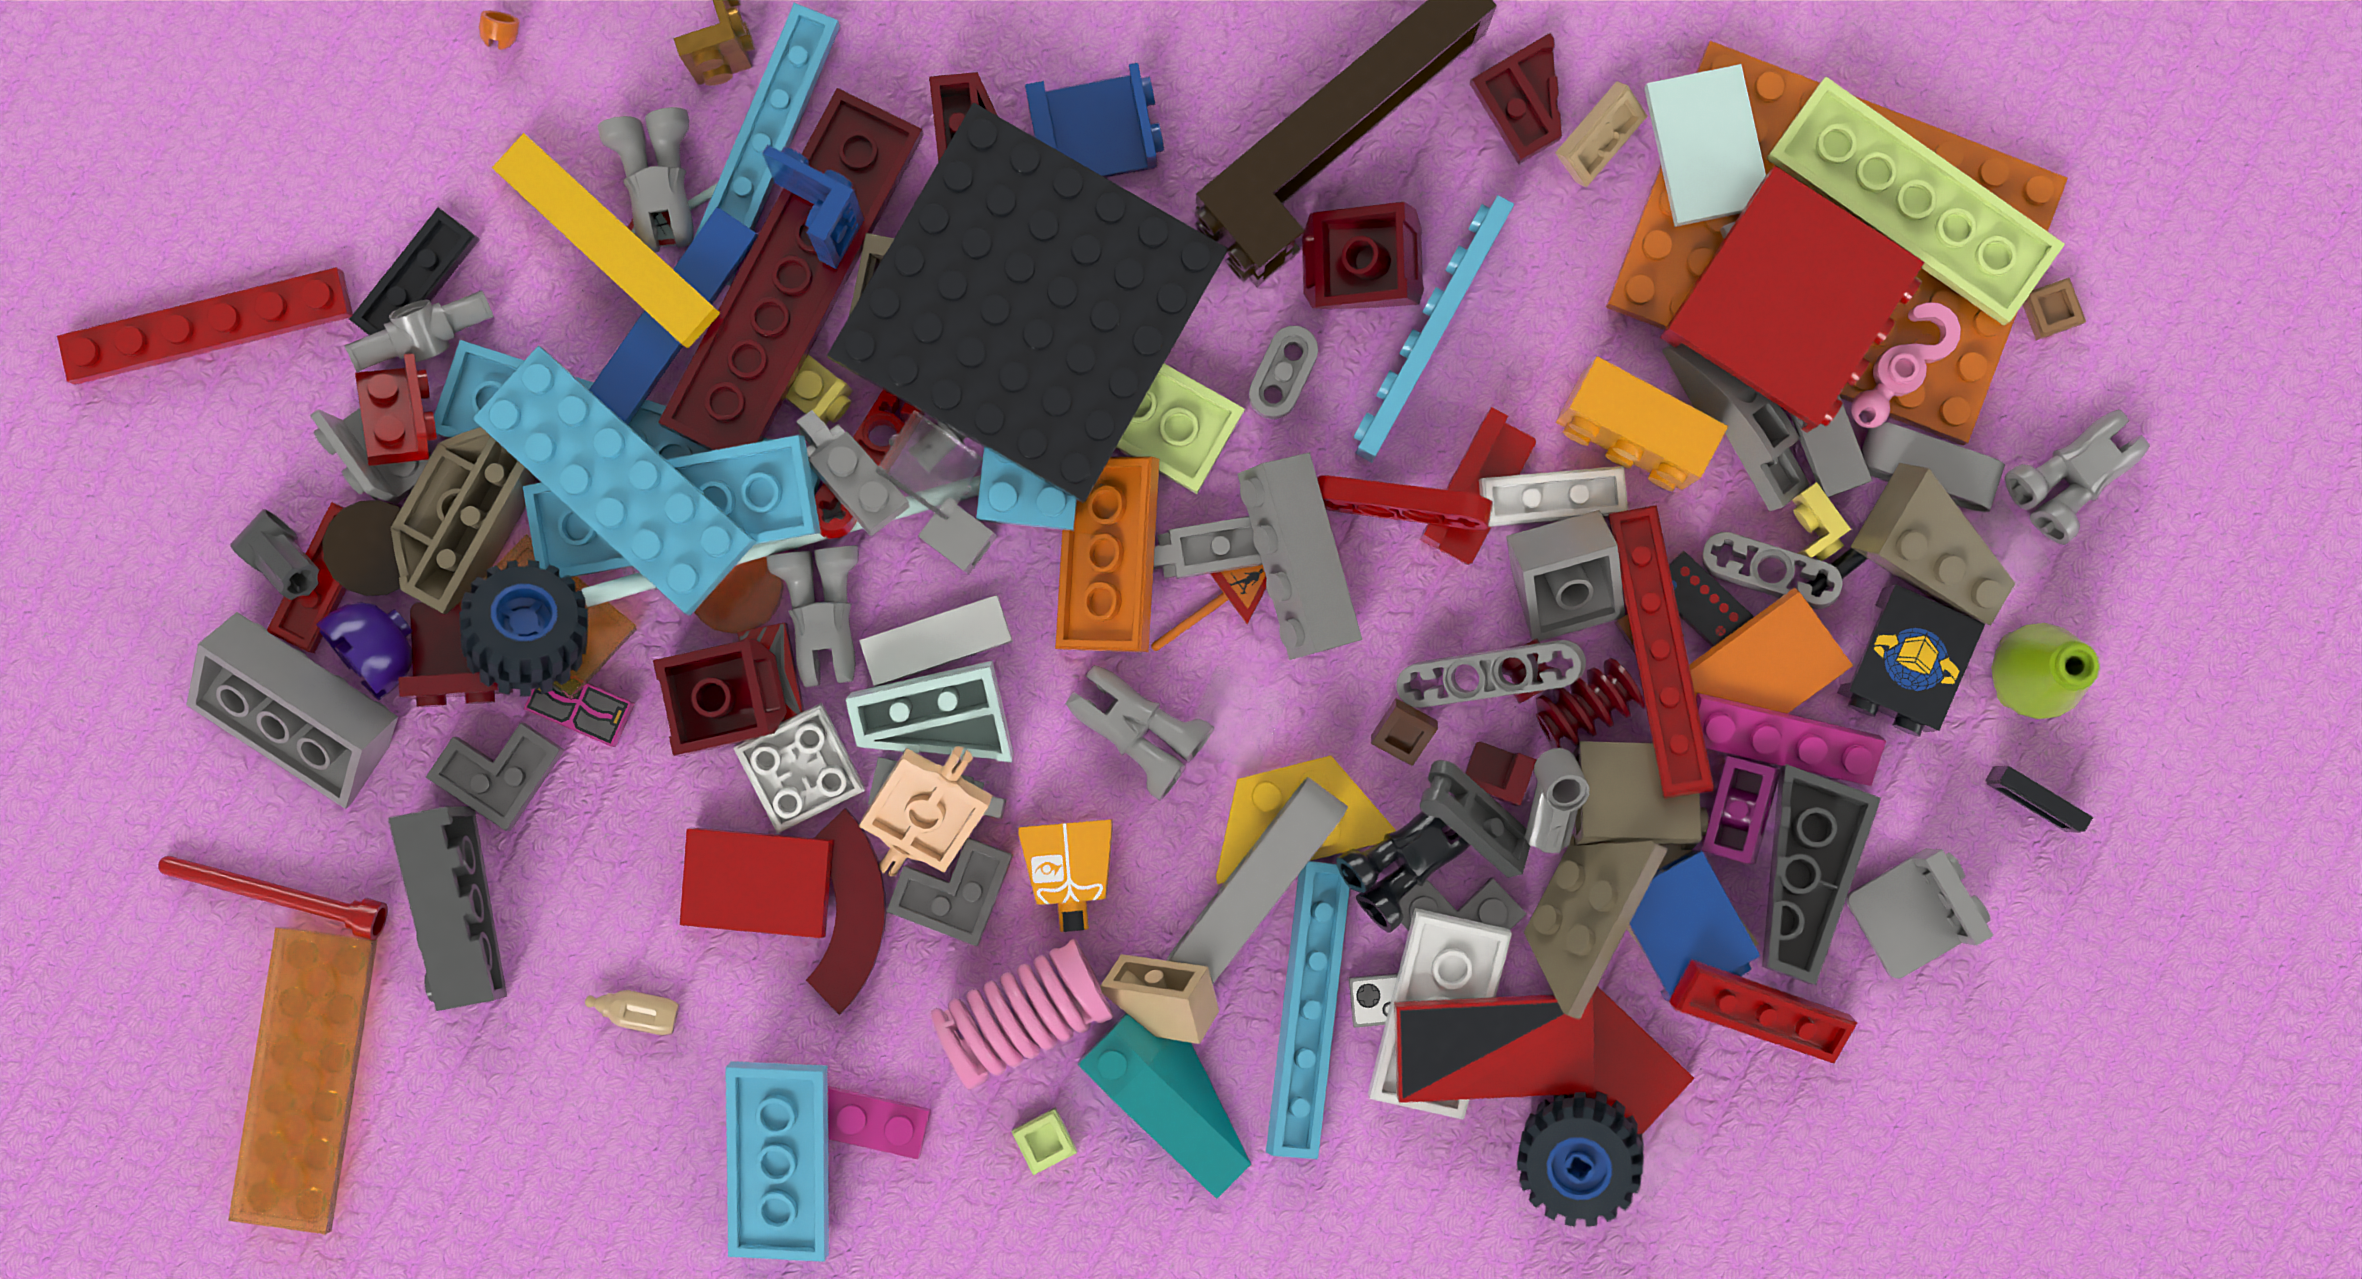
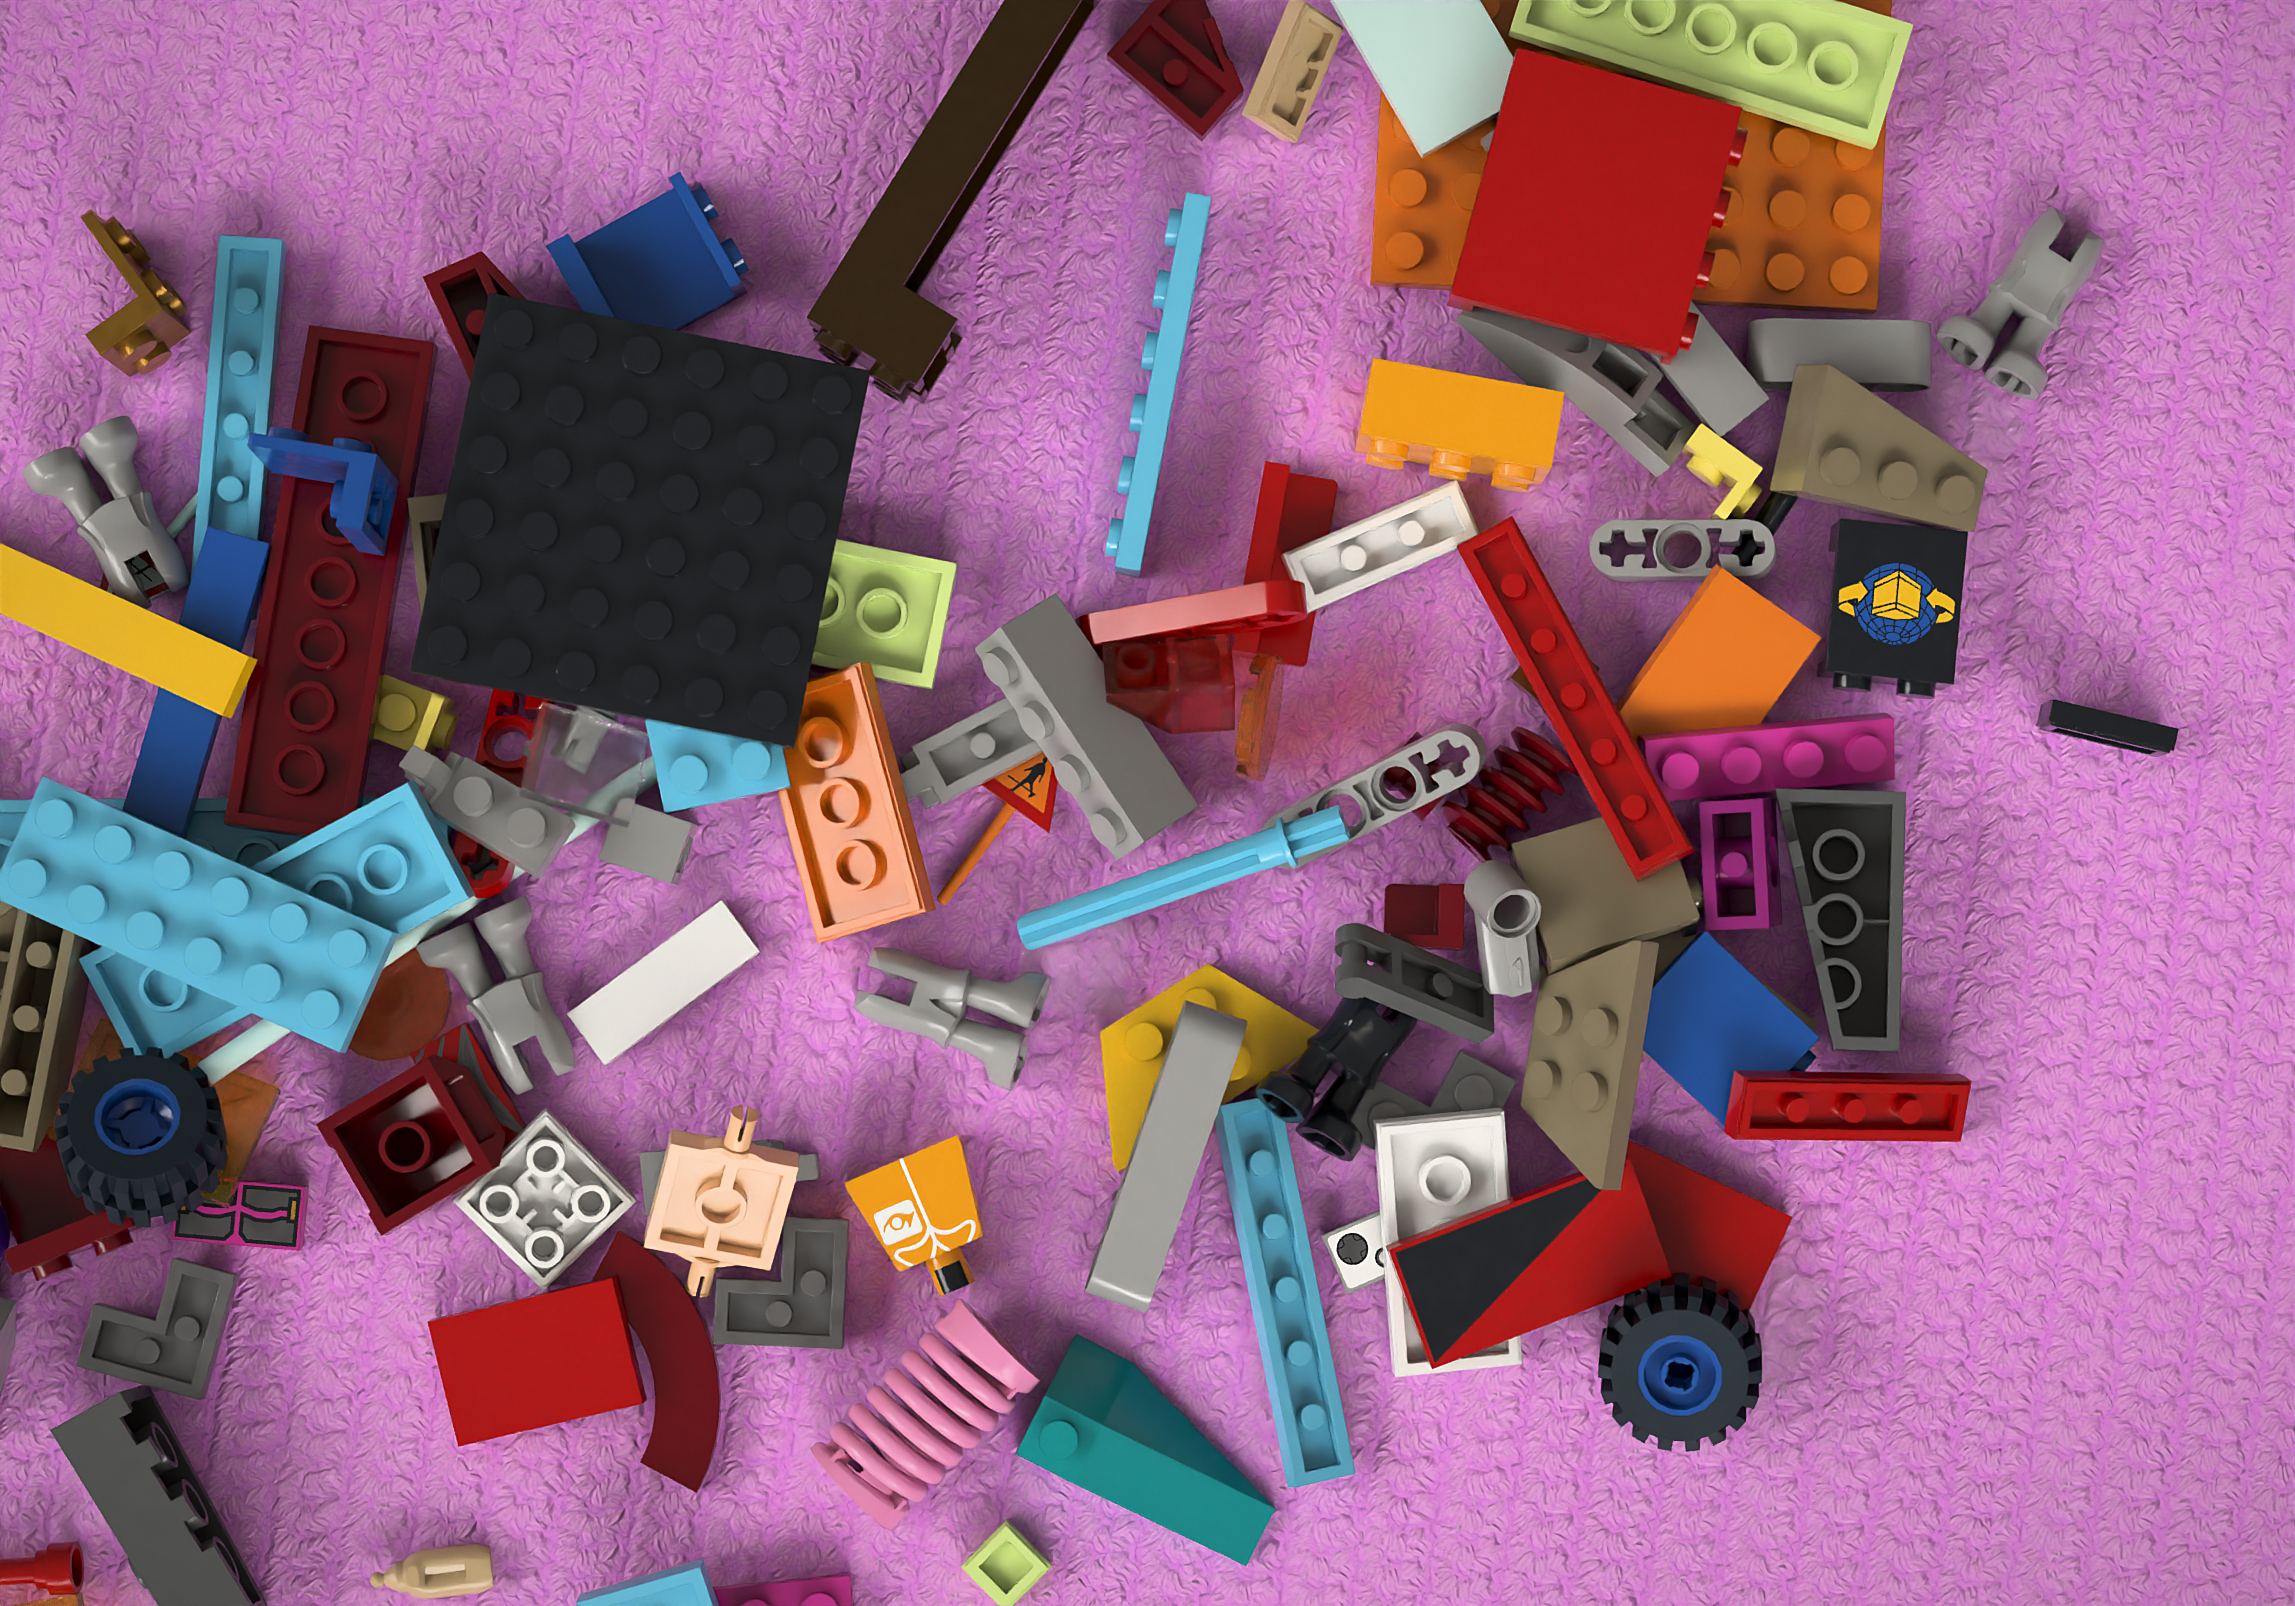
camera: 20 degrees left, 0 degrees up
(935, 714) = (693, 1075): light aqua wedge -> none
(1163, 996) = (1096, 1333): tan slope -> none
(1283, 374) = (990, 502): light grey plate -> none
(1335, 688) = (1184, 877): none -> medium azure axle
(1363, 257) = (1044, 324): dark red slope -> none
(1373, 544) = (1173, 682): none -> clear red slope
(1404, 732) = (1289, 904): reddish brown plate -> none
(1427, 590) = (1259, 717): none -> clear orange tile
(1567, 575) = (1429, 641): light grey slope -> none
(1704, 601) = (1611, 616): black tile -> none
(1904, 366) = (1762, 243): bright pink piece -> none
(1918, 912) = (2002, 918): light grey bracket -> none
(2043, 670) = (2046, 579): lime cone -> none
(2053, 309) = (1930, 106): medium nougat tile -> none

